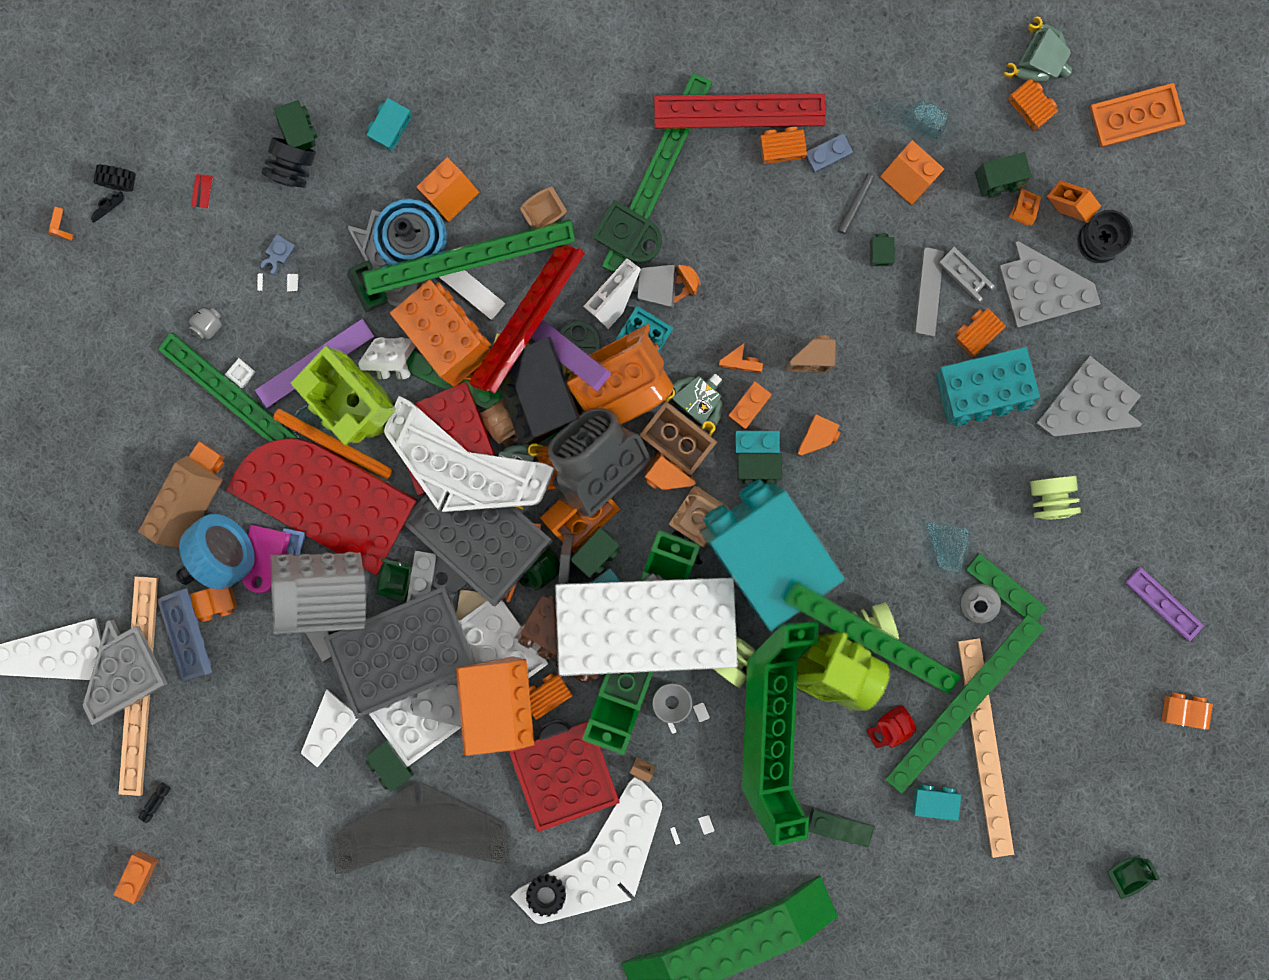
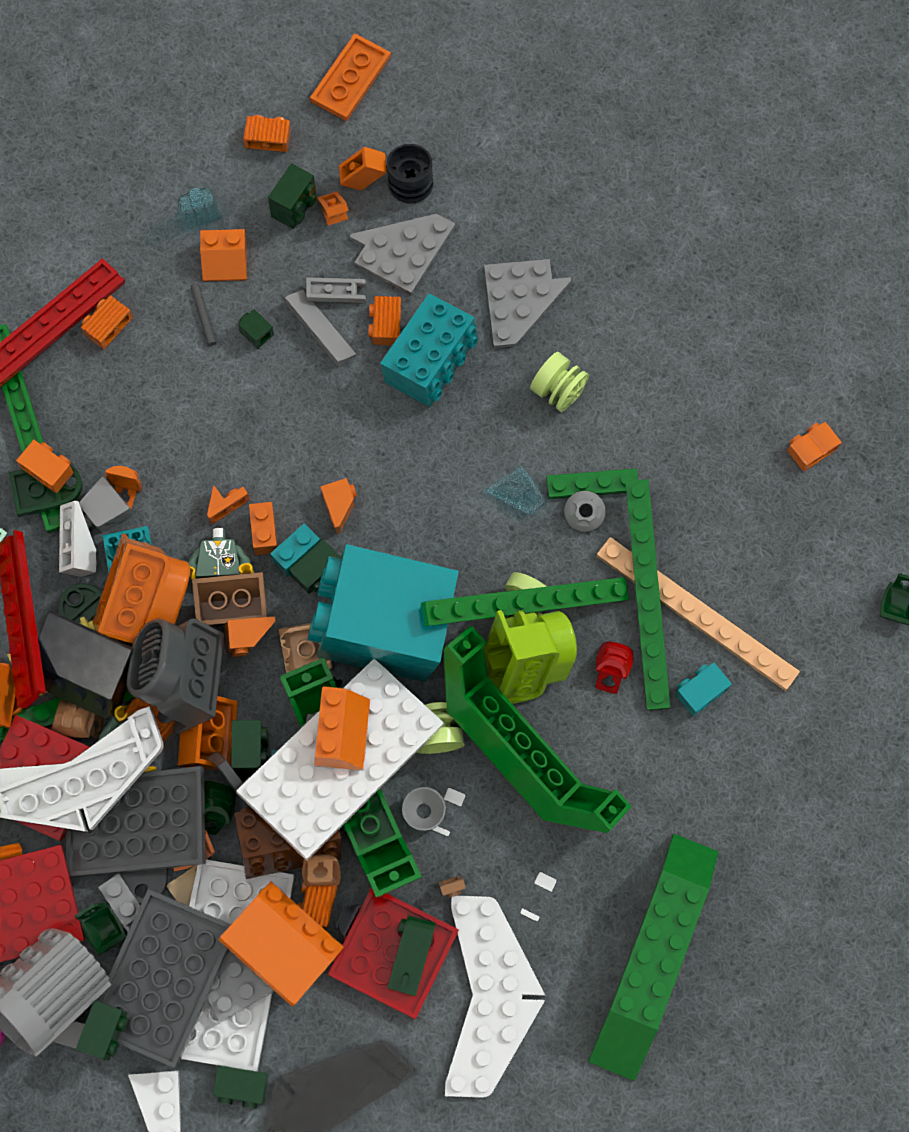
camera: 50 degrees left, 15 degrees down
(332, 652) = (102, 1030): none -> dark green brick
(549, 908) = (457, 1068): black tyre -> none
(567, 685) = (321, 870): none -> medium nougat piece
(572, 356) = (87, 607): medium lavender tile -> none
(573, 791) = (411, 954): none -> dark green door
(641, 221) = (45, 466): none -> orange brick
(663, 611) = (342, 729): none -> orange slope
(815, 357) = (277, 444): medium nougat slope -> none
(829, 153) = (147, 297): sand blue plate -> none
(839, 827) = (650, 779): dark green slope -> none
(1044, 56) = (241, 93): sand green torso -> none
(1164, 604) = (717, 387): medium lavender tile -> none

